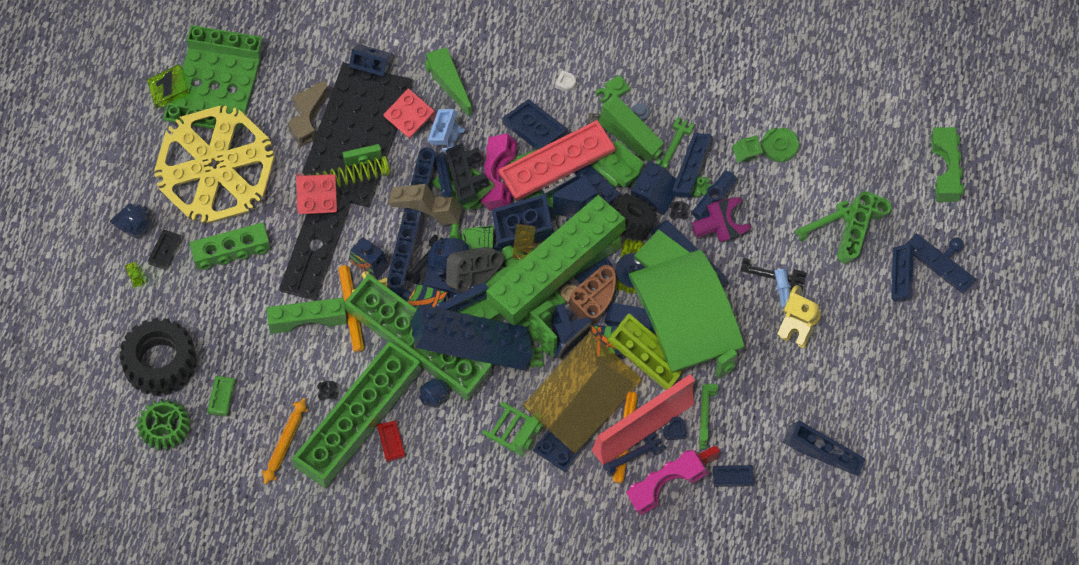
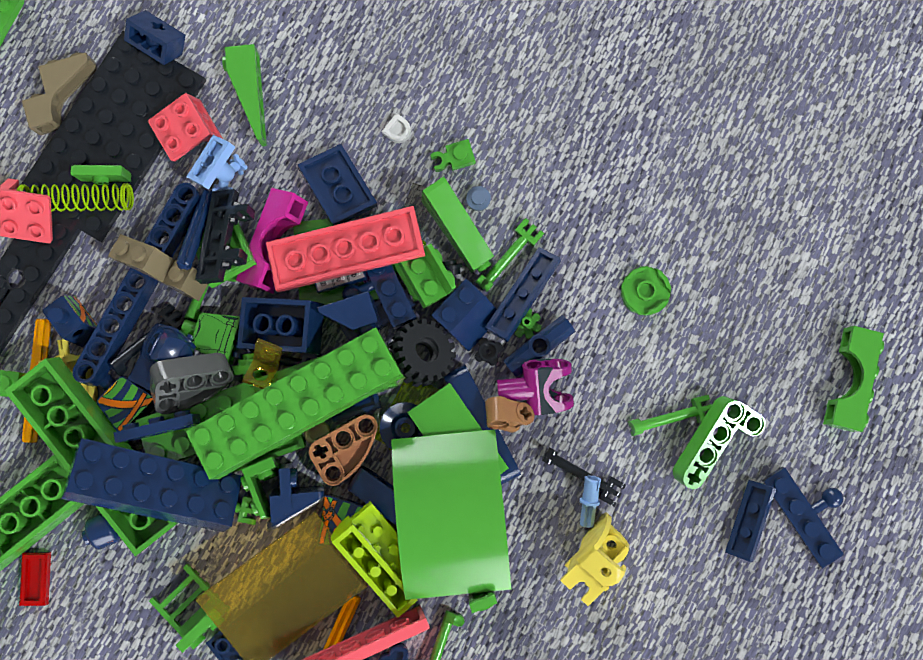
camera: 15 degrees right, 20 degrees up
(707, 241) = (507, 414): none -> medium nougat piece
(747, 149) = (600, 292): bright green brick -> none

